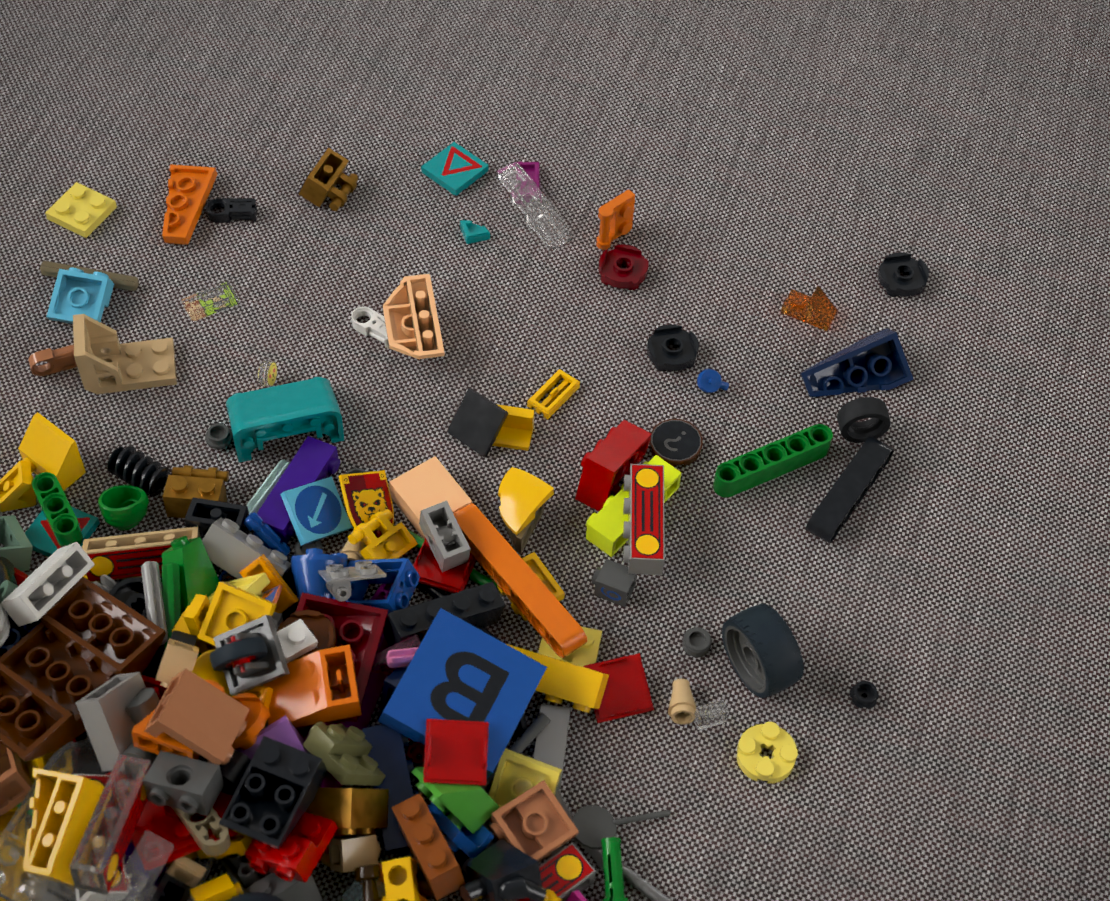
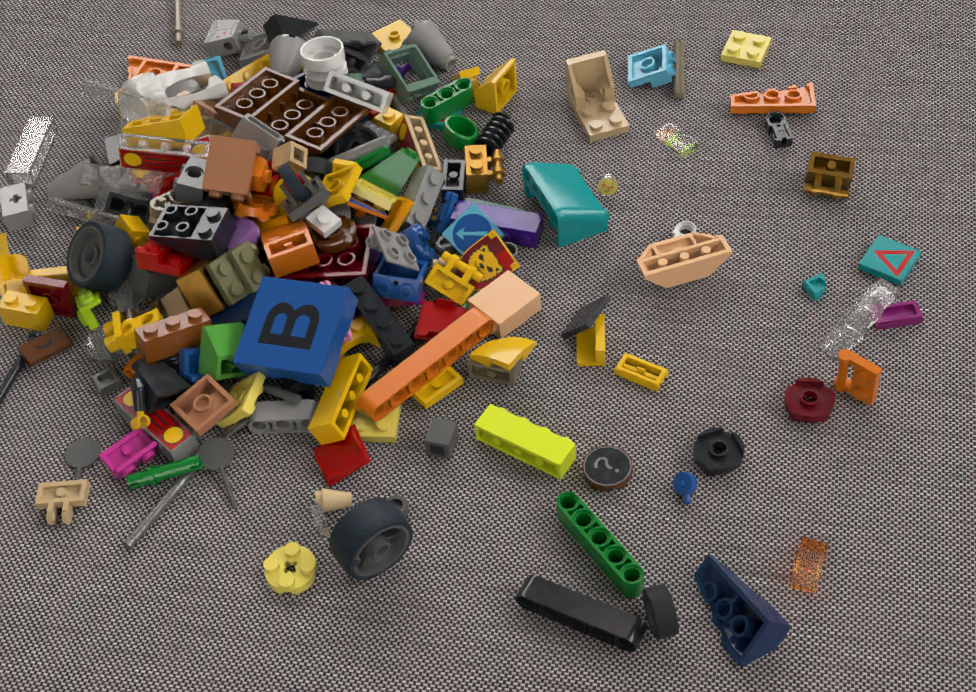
camera: 90 degrees right, 5 degrees down
(444, 536) = (450, 304): light grey brick -> none
(456, 752) = (242, 331): red piece -> none
(609, 463) = (568, 416): red wedge -> none
(645, 519) = (494, 437): brick -> none
(866, 688) = (350, 634): black plate -> none
(899, 285) = (884, 663): black plate -> none

